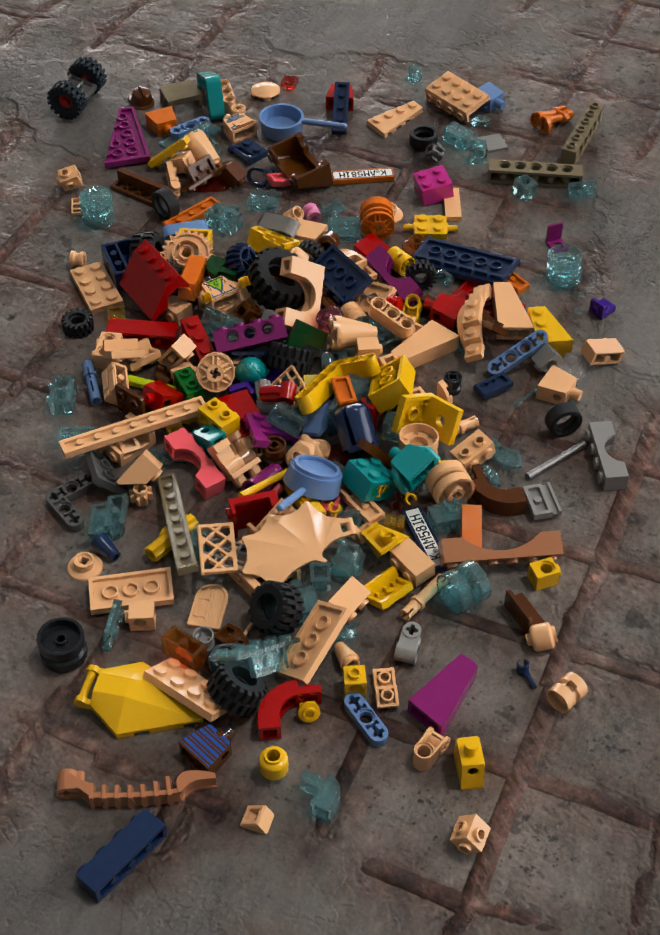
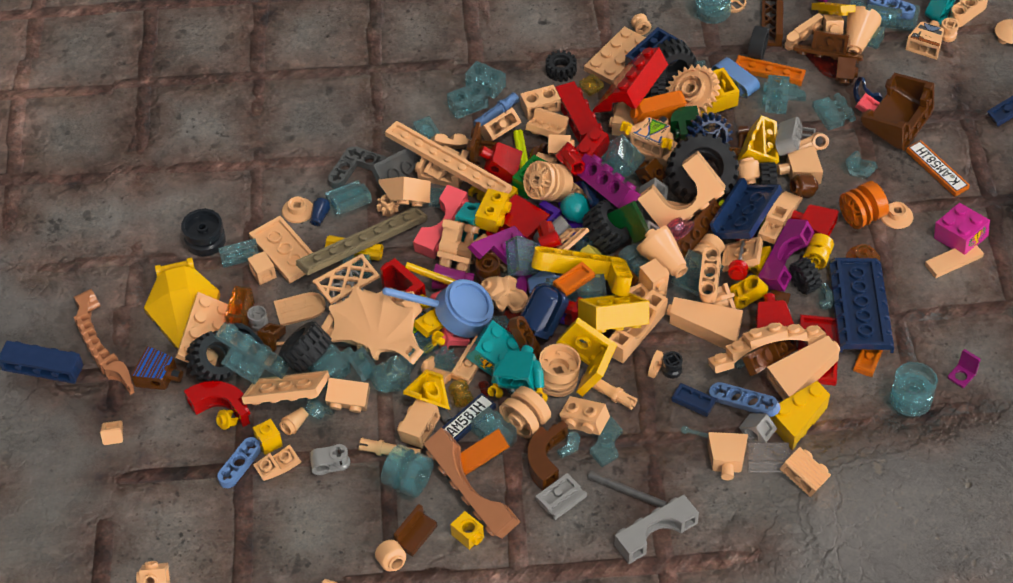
camera: 65 degrees right, 5 degrees up
(42, 373) = (491, 79): none -> clear light blue brick
(107, 418) = (456, 141): none -> light nougat slope
(122, 348) = (533, 108): light nougat bracket -> none
(206, 344) = (569, 157): none -> red piece
(248, 151) = (905, 64): dark blue plate -> none
(273, 763) = (159, 416): yellow head -> none
(285, 120) = (963, 68): medium blue piece -> none
(312, 212) = (836, 156): bright pink wheel -> none
(326, 795) = (150, 466): clear light blue brick -> none
(345, 227) = (835, 185): clear light blue plate -> none
(387, 588) = (381, 418): yellow bracket -> none
(430, 745) = (229, 517): light nougat piece -> none
(431, 225) = (899, 256): yellow plate -> none
(443, 695) = (289, 506): magenta slope -> none
(469, 755) = (223, 549): yellow torso -> none
(524, 671) = (349, 559): dark blue hand -> none
(558, 412) = (675, 471): black tyre -> none
(601, 308) = (882, 450): dark purple bracket -> none

